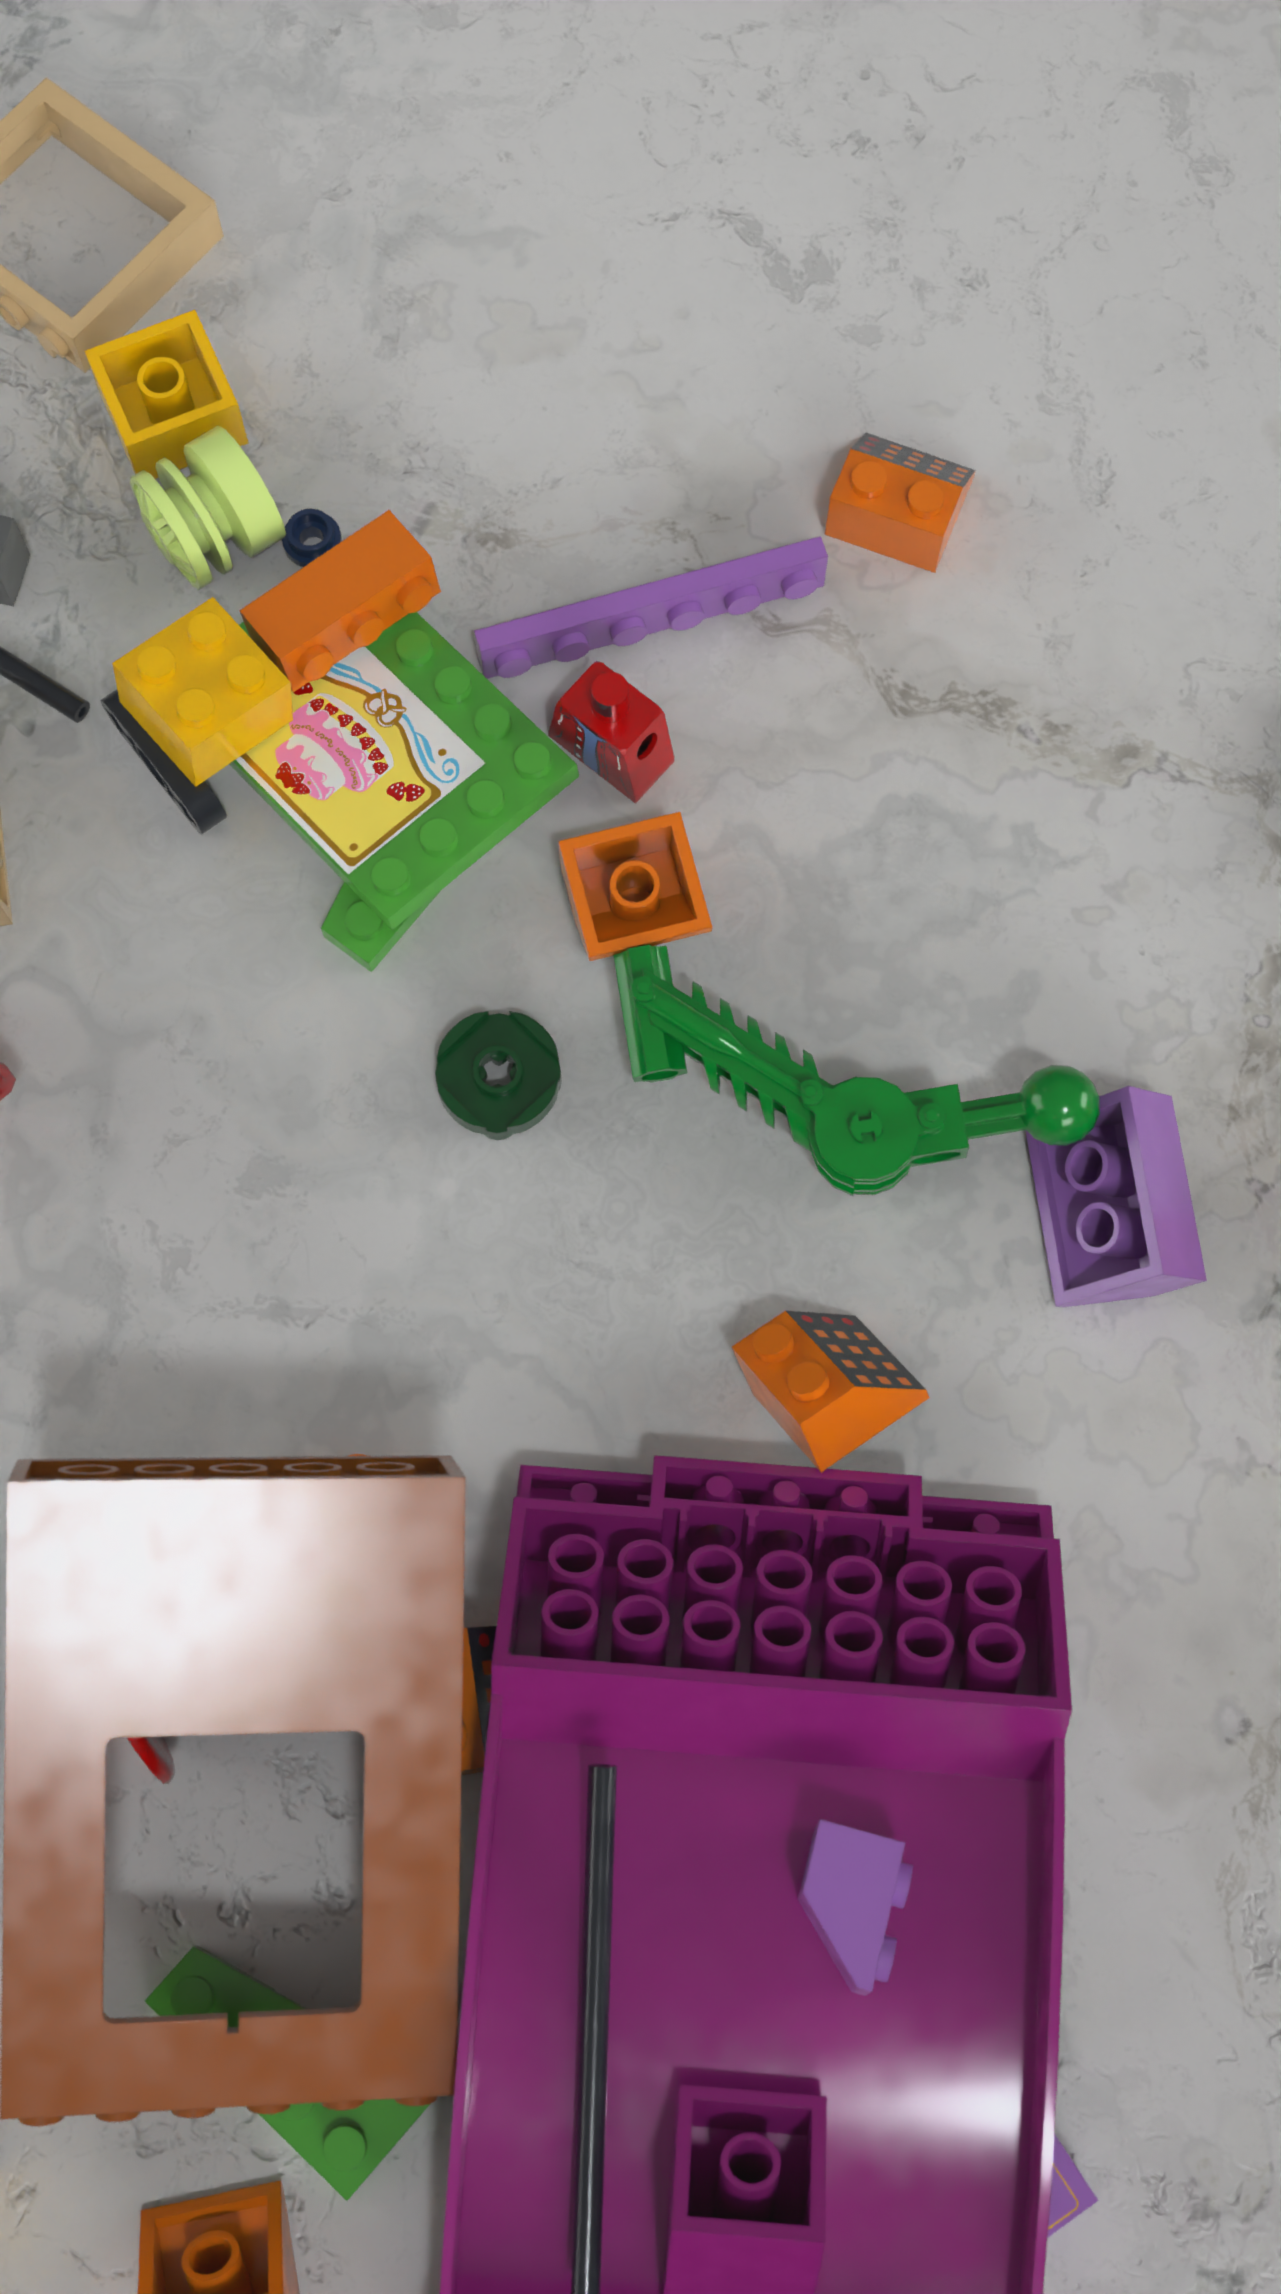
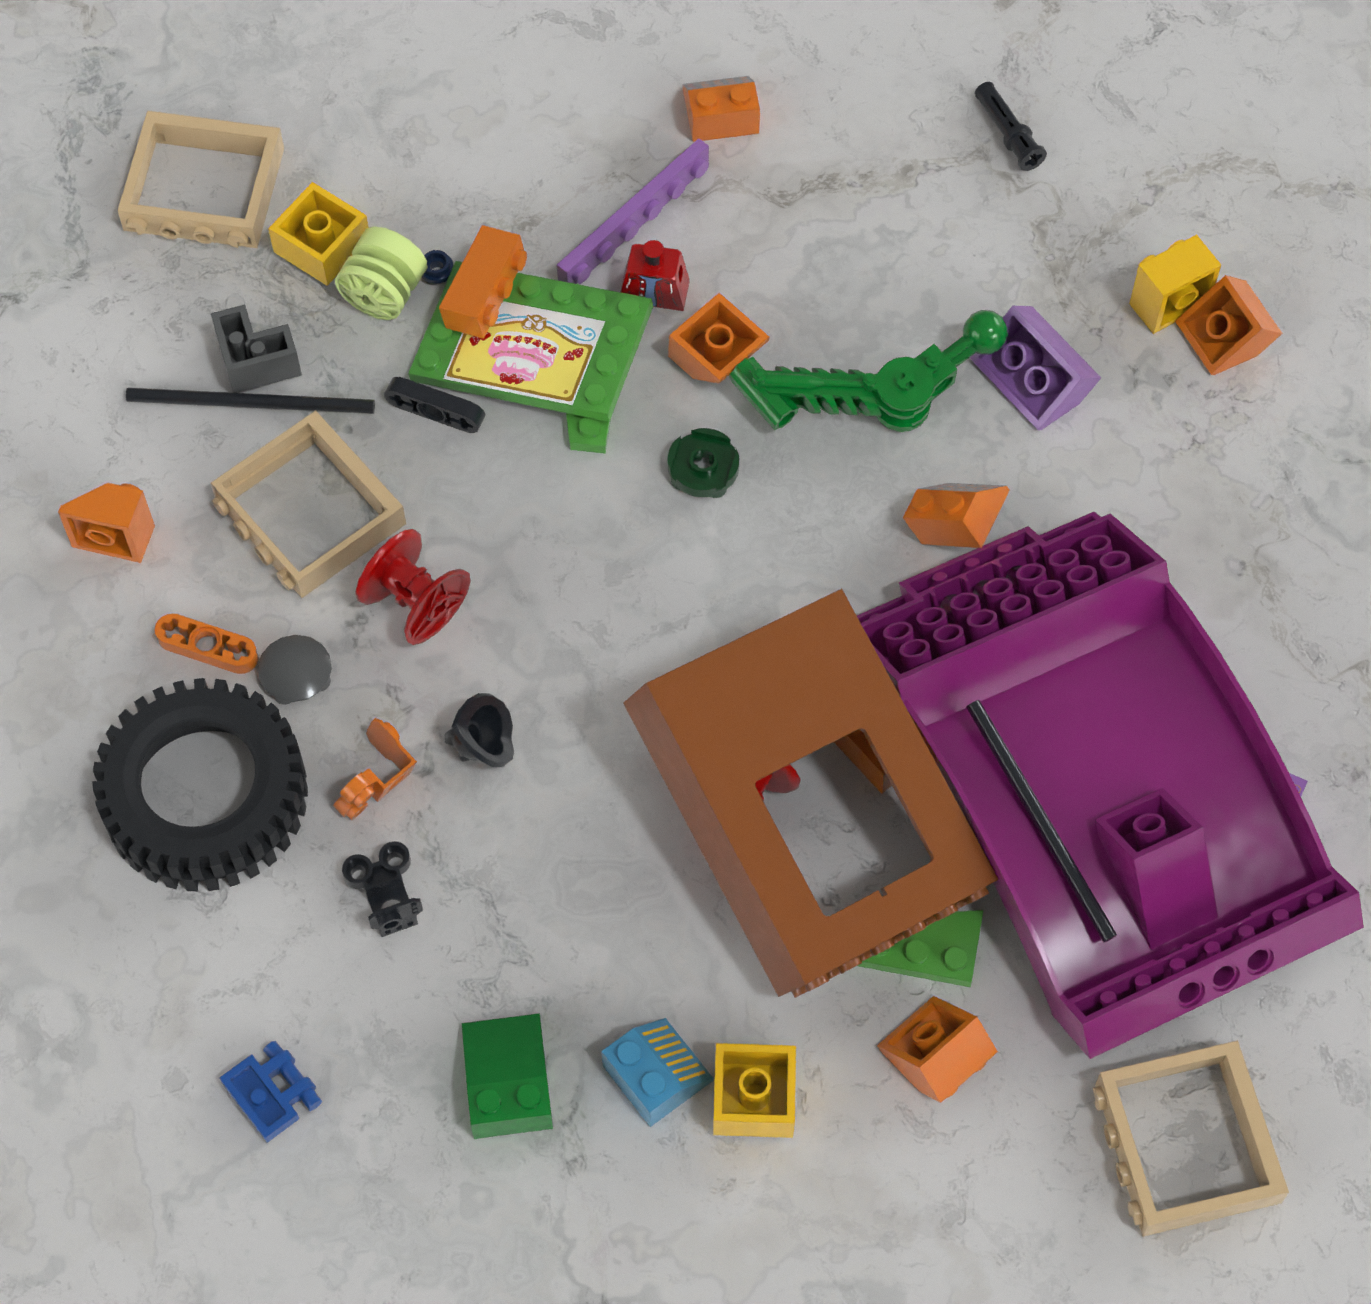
camera: 30 degrees left, 10 degrees down
(203, 691) = (444, 355): yellow brick -> none
(849, 1897) = (1119, 699): medium lavender slope -> none

